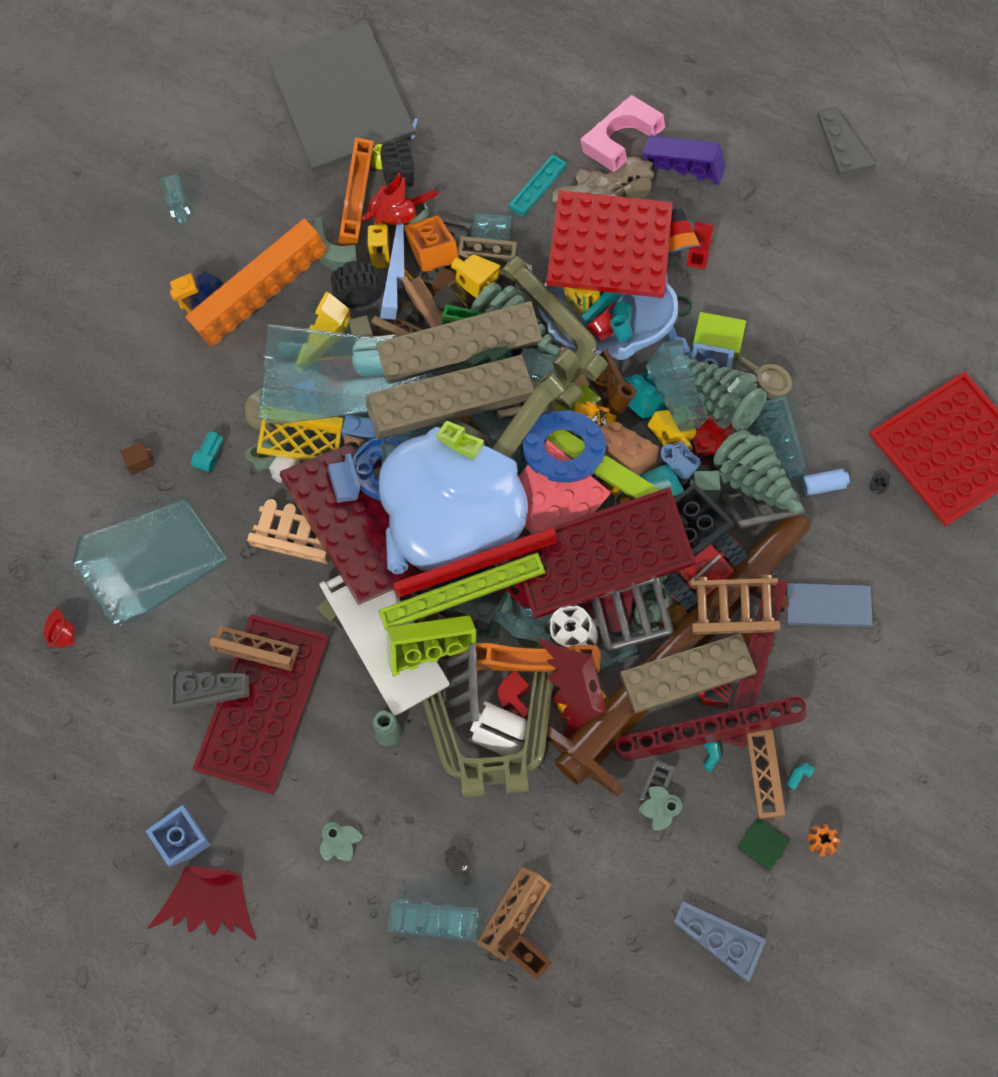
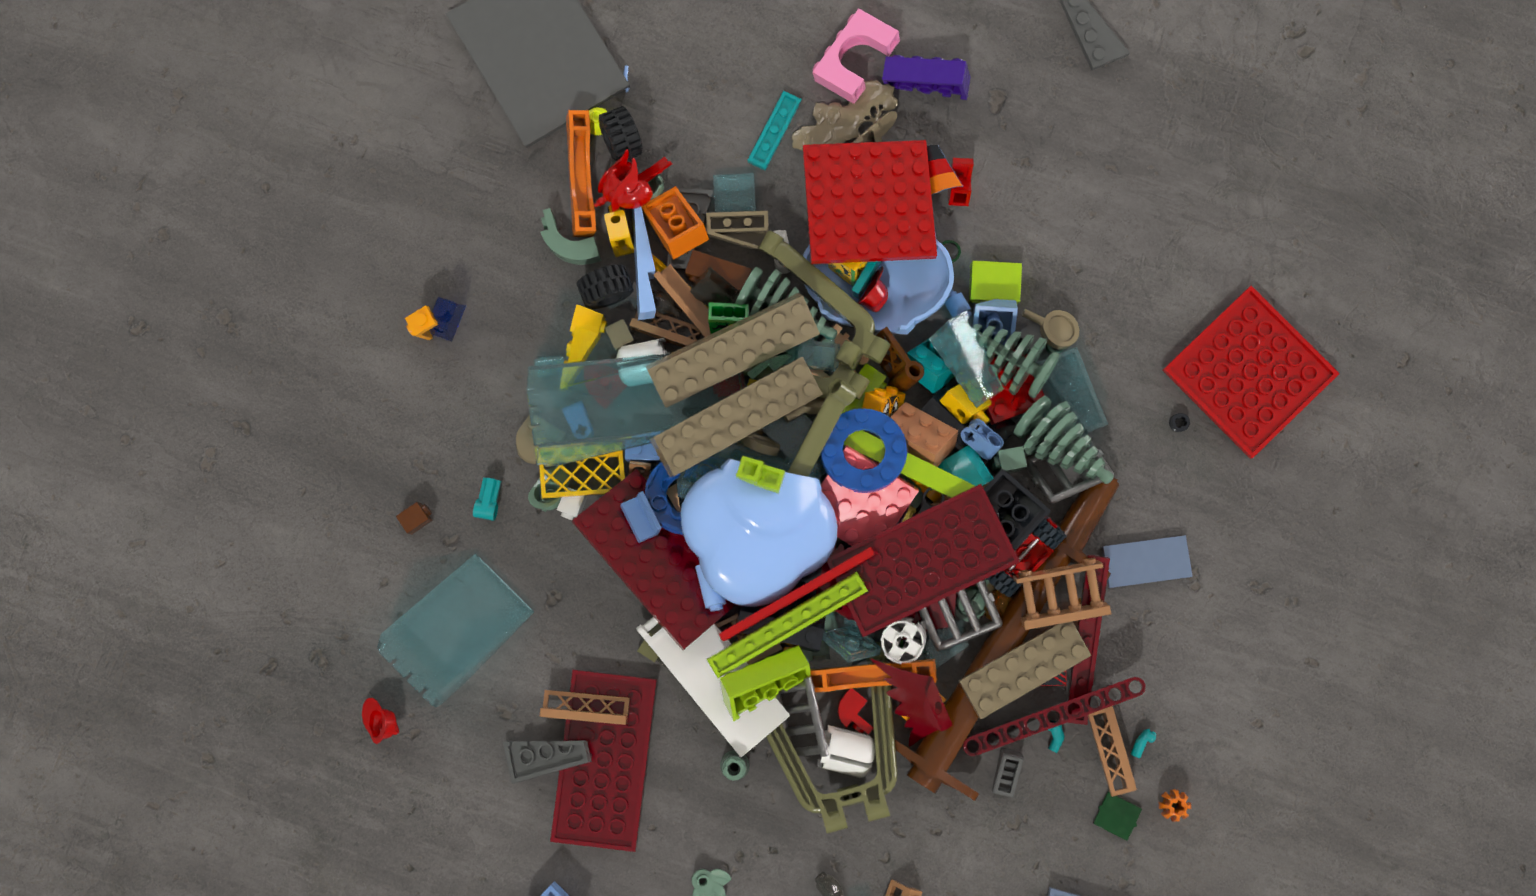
camera: 15 degrees left, 15 degrees up
(175, 197) = (381, 201): clear light blue torso -> none
(257, 283) = (498, 303): orange brick -> none
(282, 534) = (586, 576): light nougat fence -> none
(475, 273) = (730, 256): yellow torso -> none
(622, 321) = (895, 286): teal piece -> none
(657, 807) = (1012, 798): sand green plate -> none
(824, 482) = (1126, 430): light blue brick -> none

